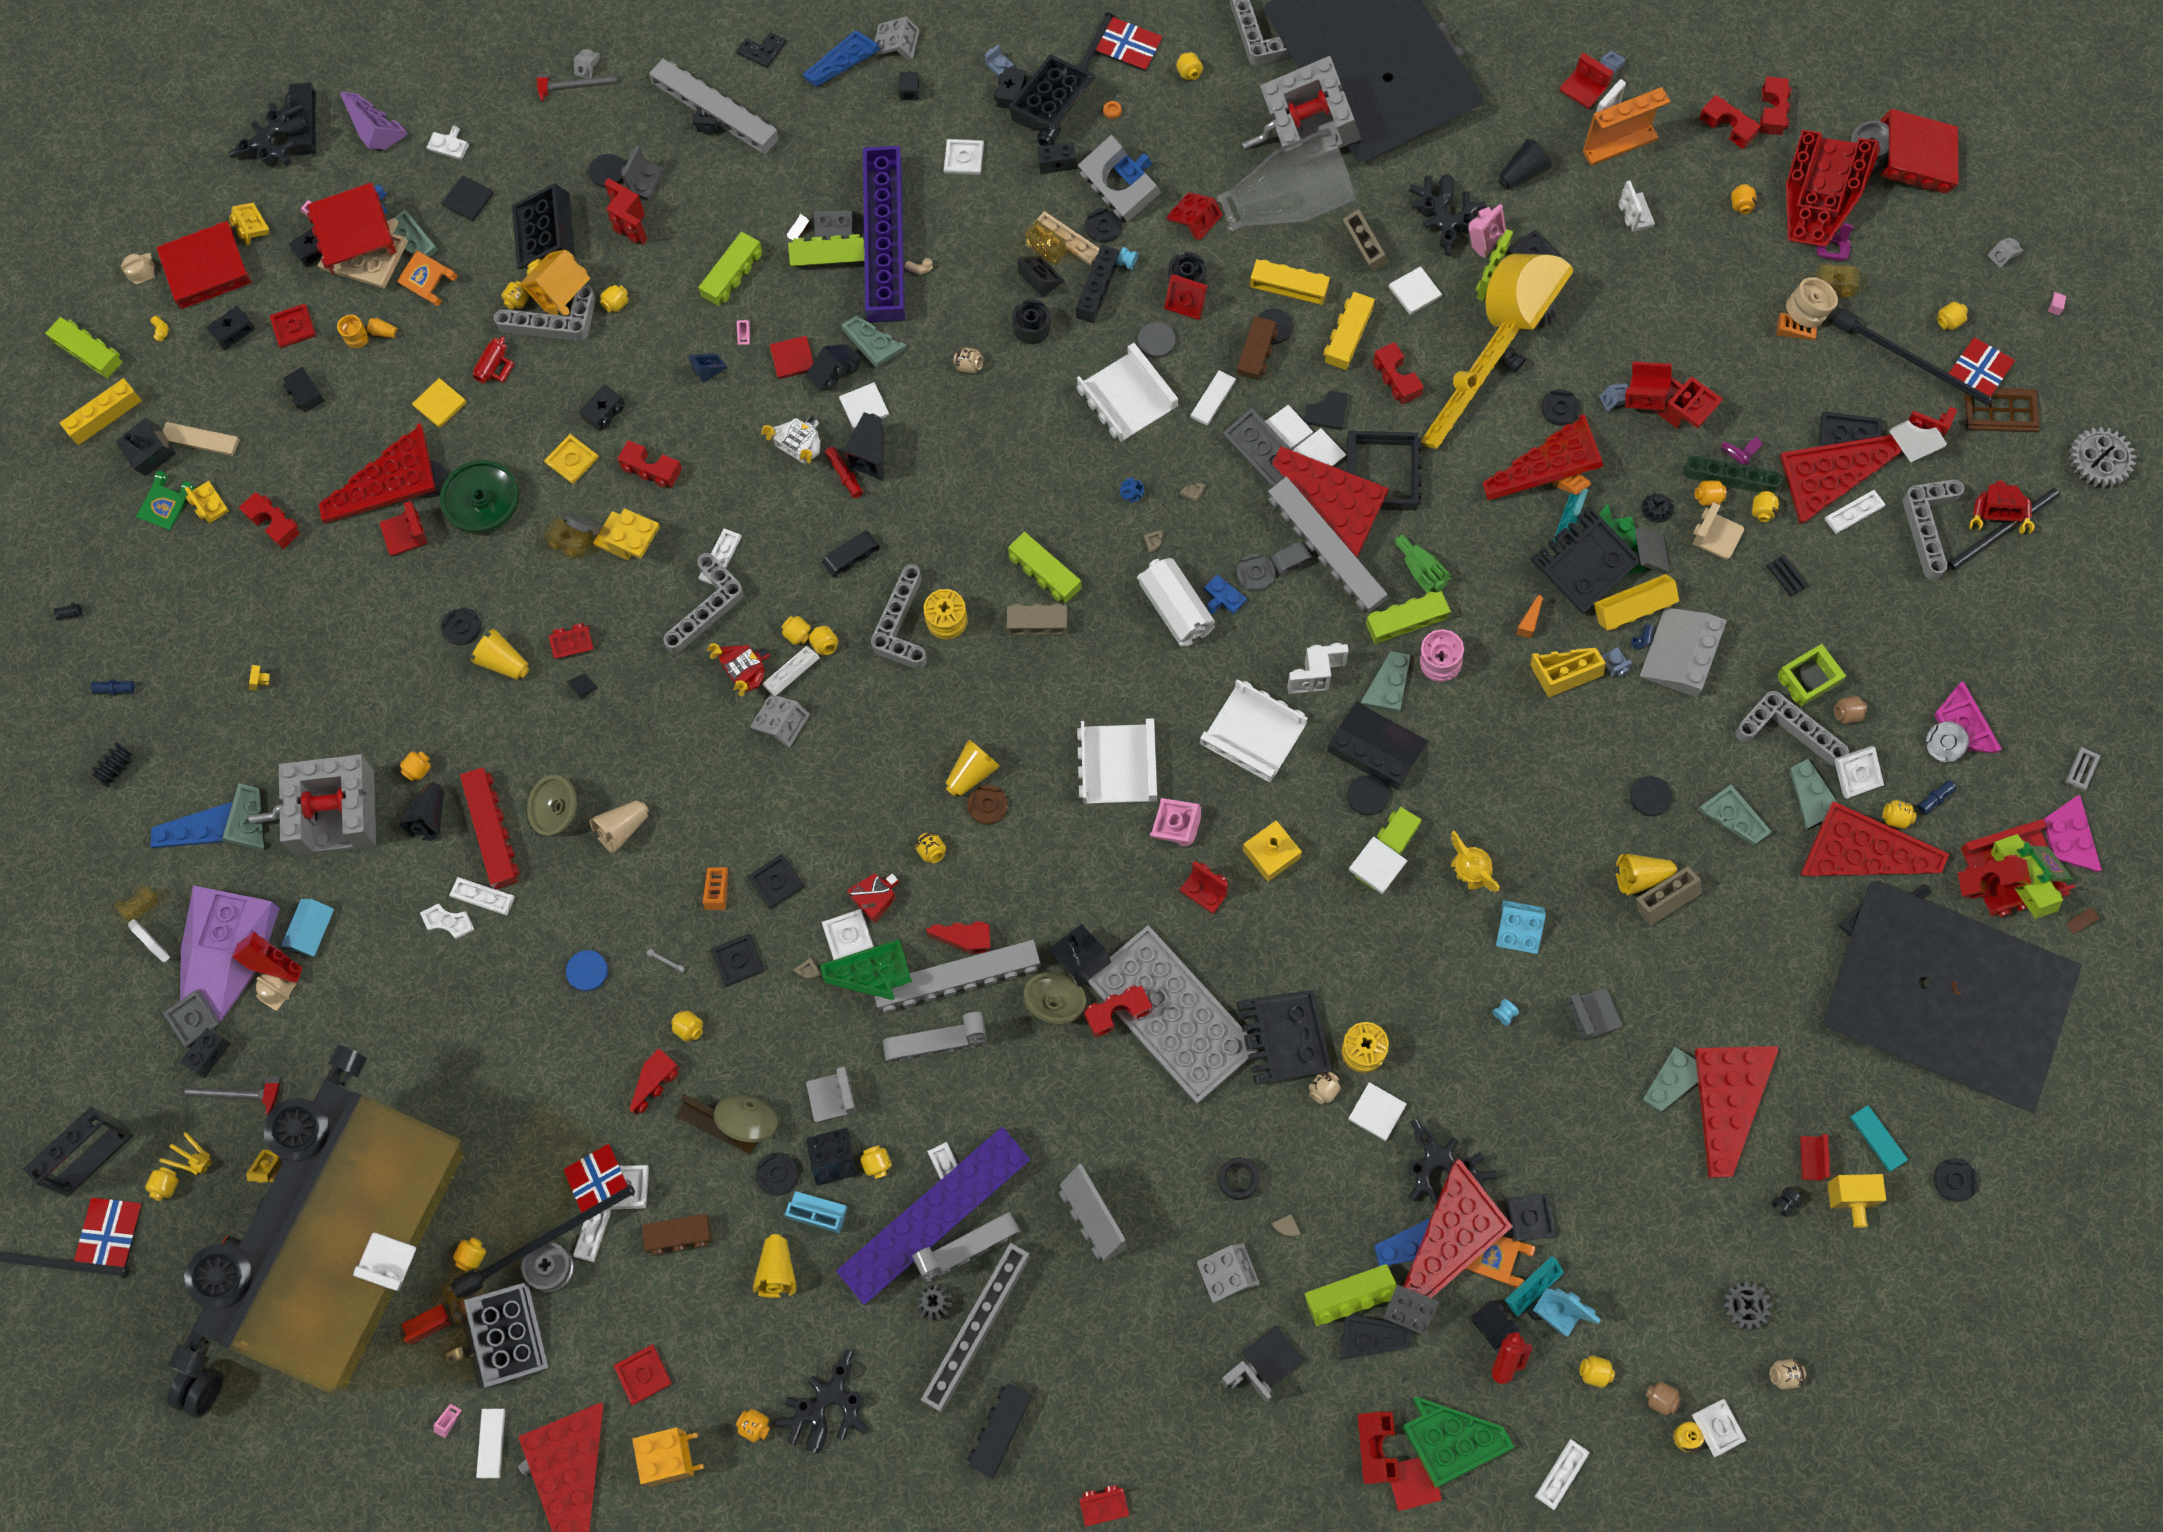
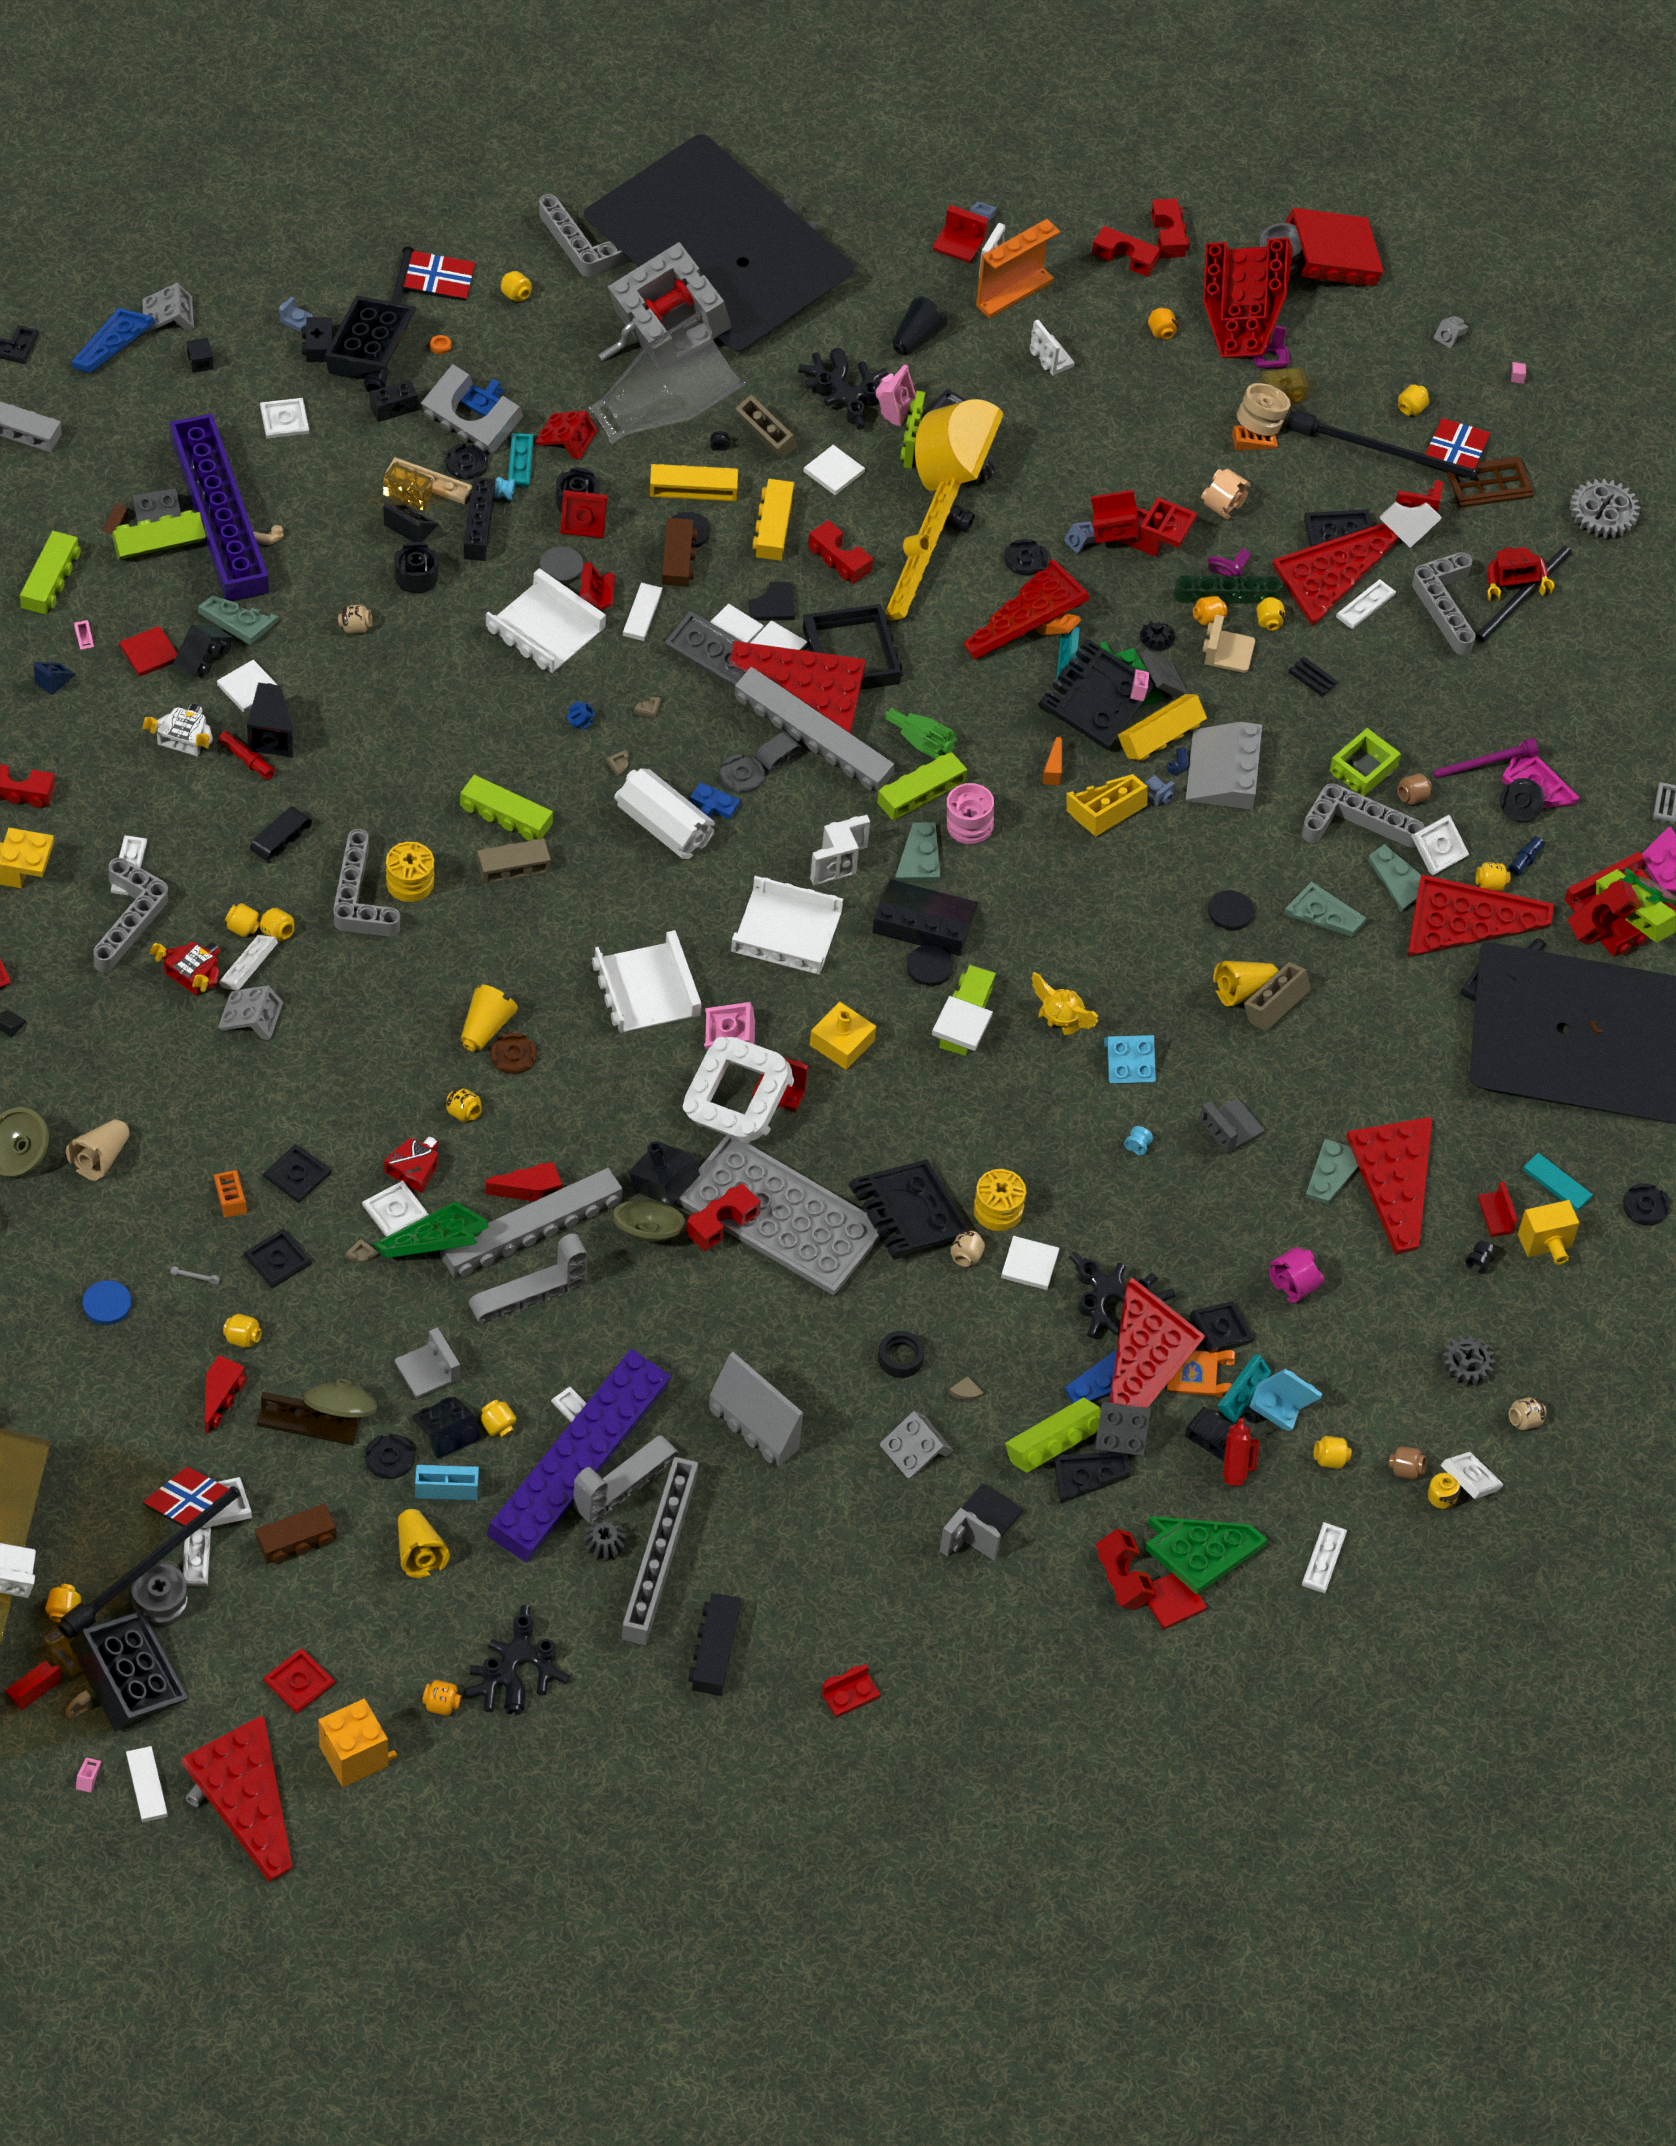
camera: 25 degrees left, 15 degrees down
(1149, 231) = (521, 459): none -> teal tile
(1178, 369) = (595, 588): none -> red bracket
(1185, 906) = (764, 1103): none -> white plate
(1323, 245) = (719, 441): none -> black bush
(1611, 1184) = (1296, 1273): none -> dark pink brick
(1626, 559) = (1140, 685): none -> bright pink piece
(1755, 380) = (1225, 492): none -> light nougat brick
(1966, 690) = (1528, 747): none -> magenta piece

